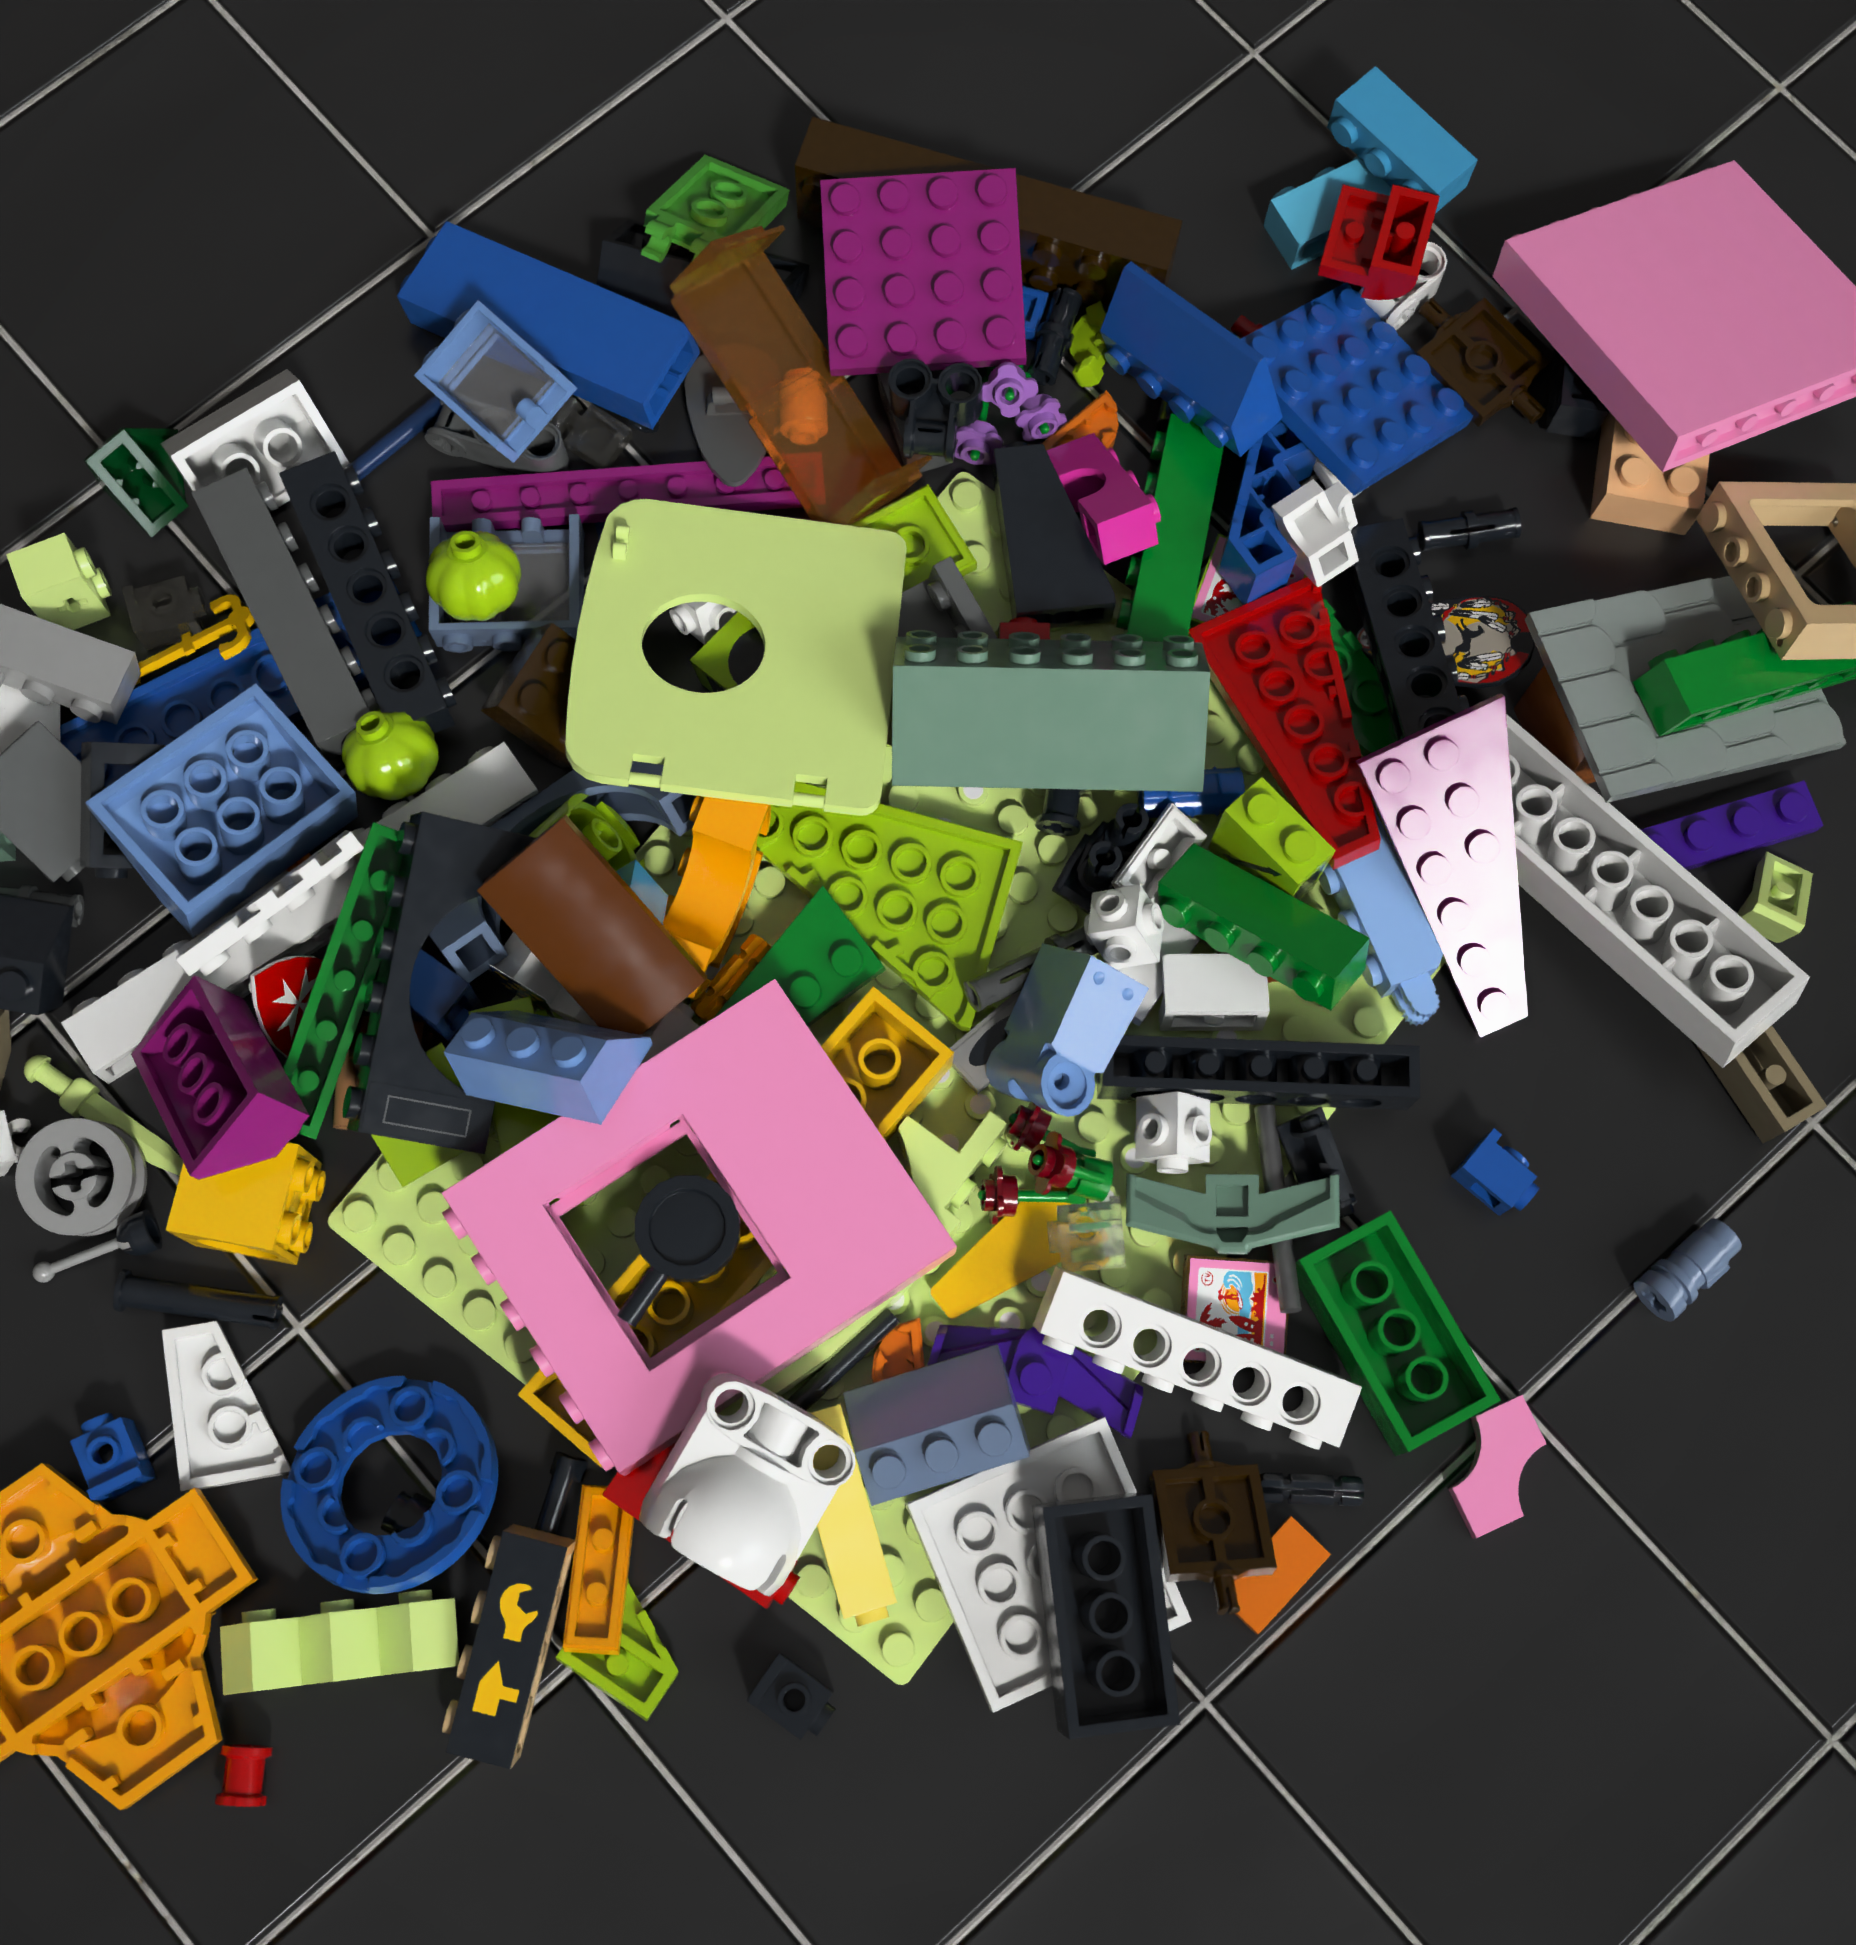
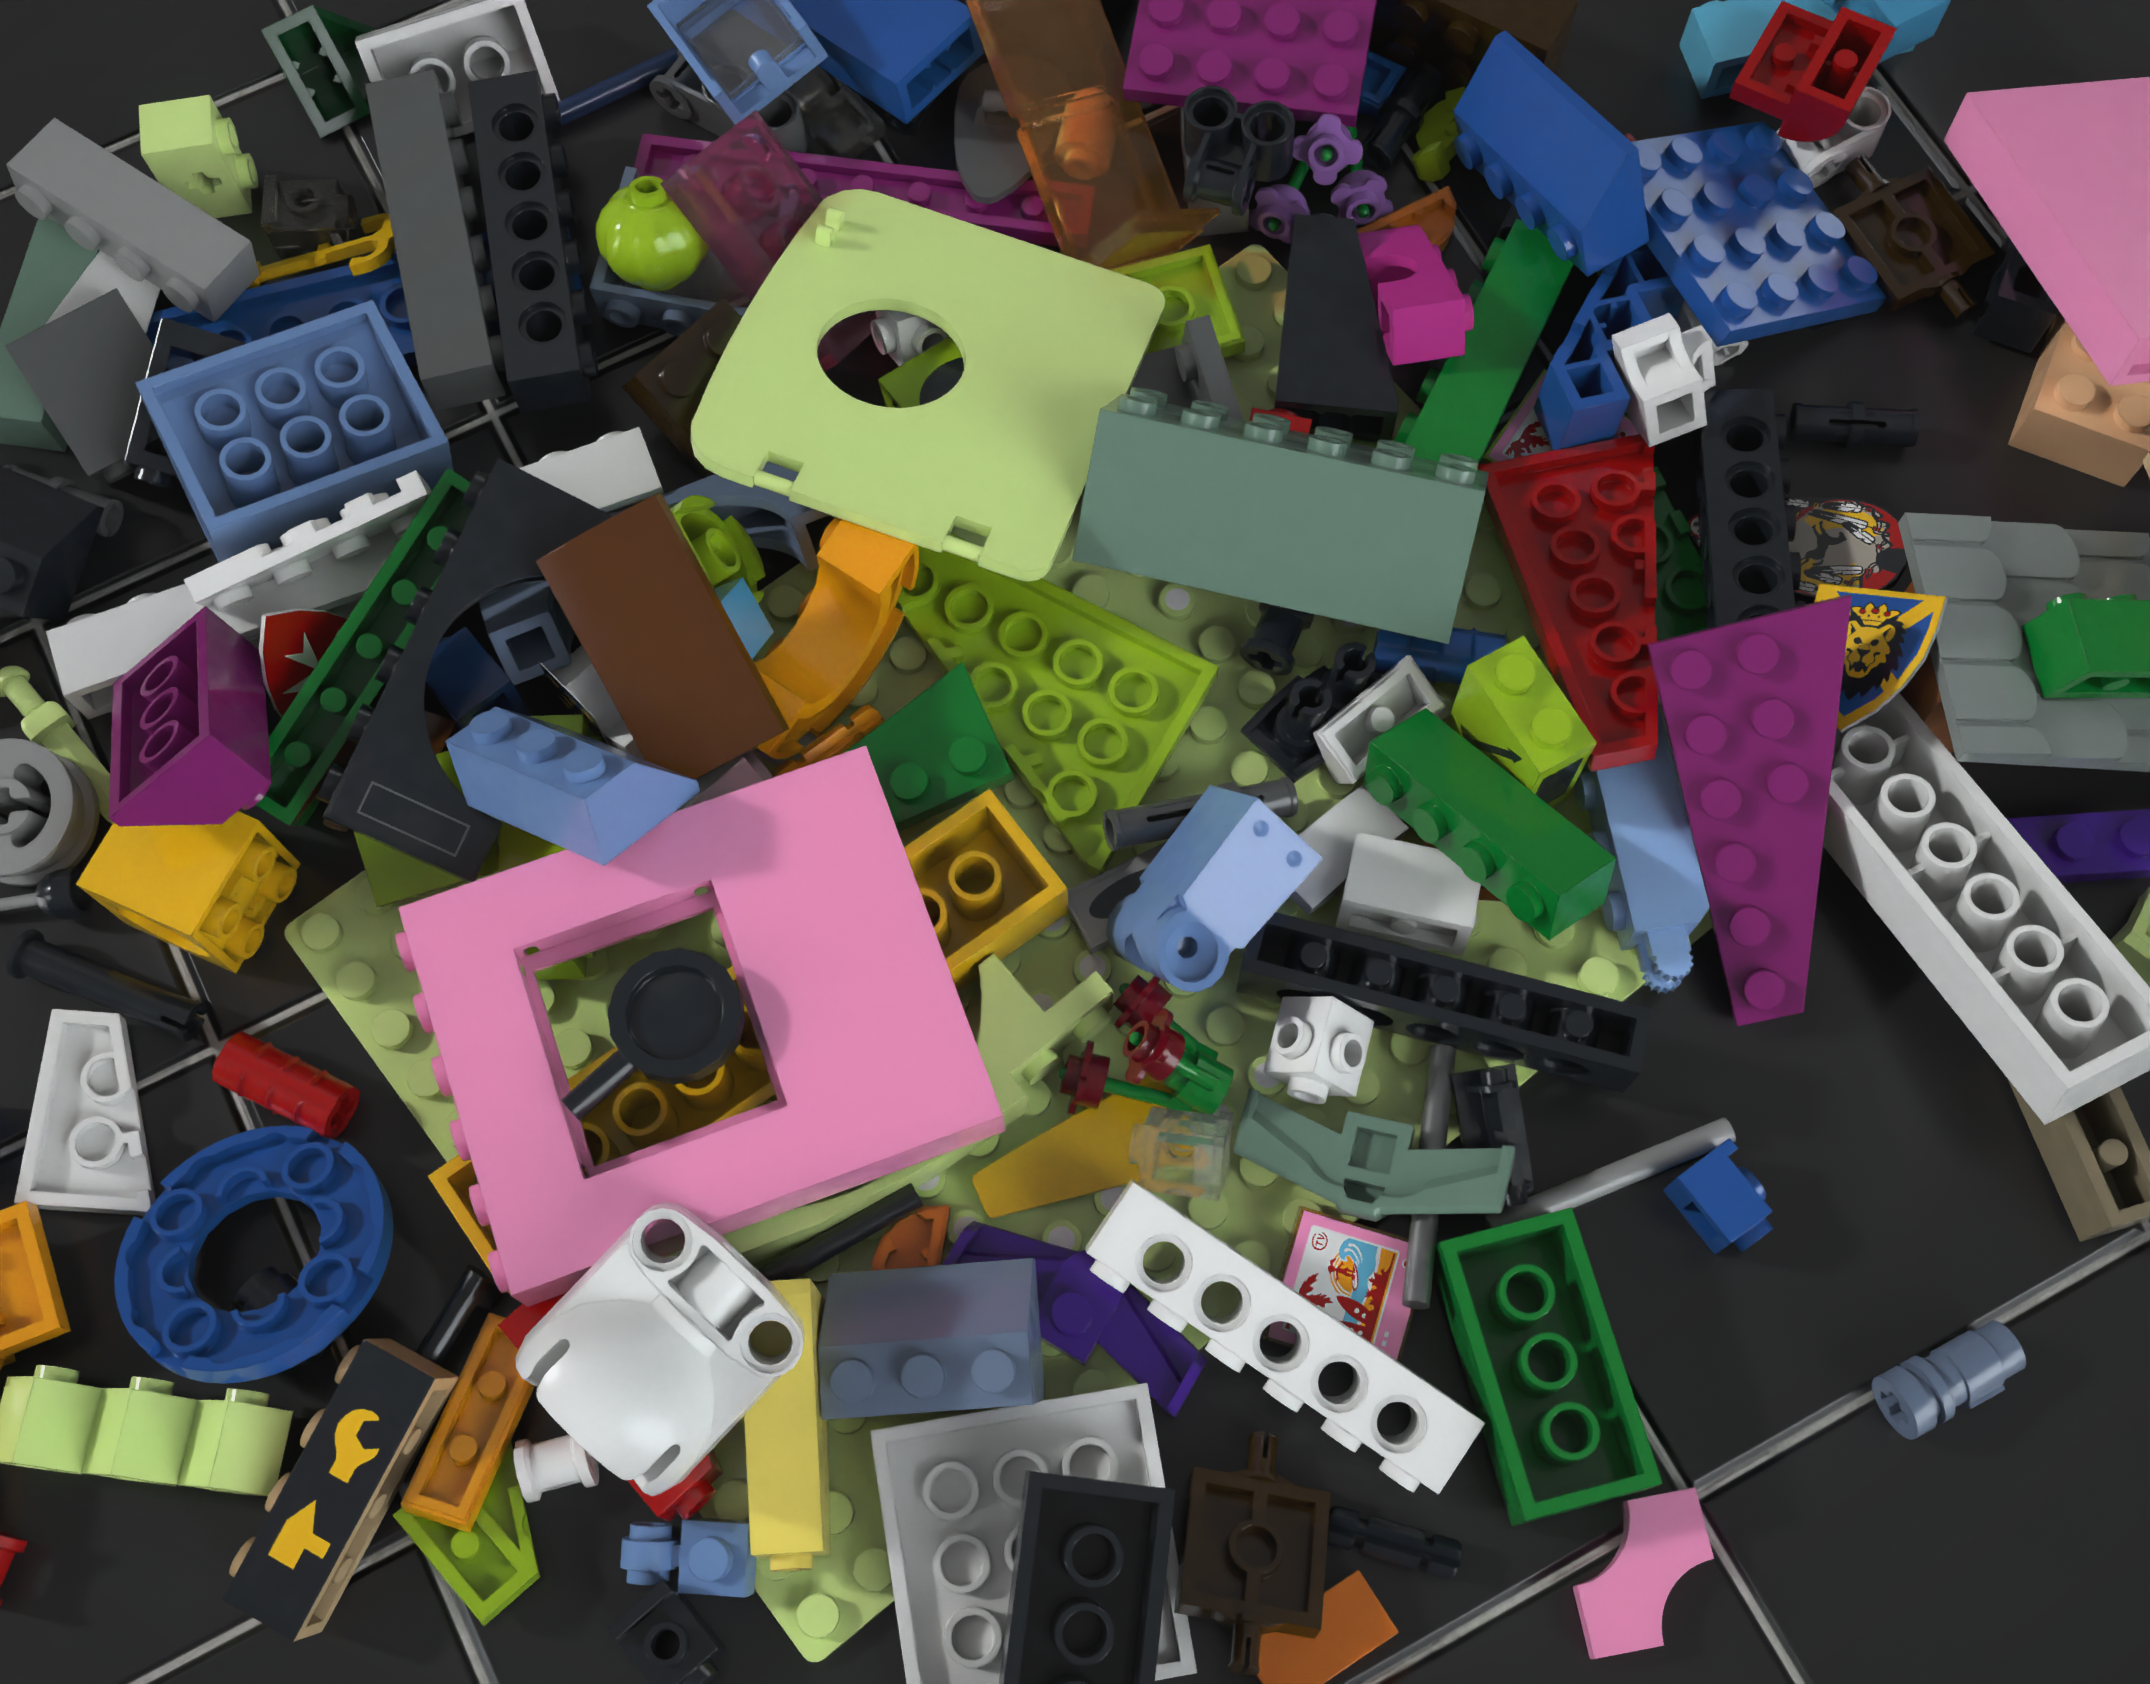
camera: 20 degrees right, 5 degrees down
(369, 1346) = (286, 1085): none -> red axle
(389, 755) = (504, 412): lime plant -> none
(551, 539) = (748, 207): none -> clear pink slope
(668, 1586) = (552, 1466): none -> white bush
(807, 1625) = (710, 1556): none -> medium blue plate
(1125, 926) = (1317, 787): white brick -> none
(1414, 1173) = (1618, 1174): none -> light grey piece
(1536, 720) = (1884, 645): none -> shield

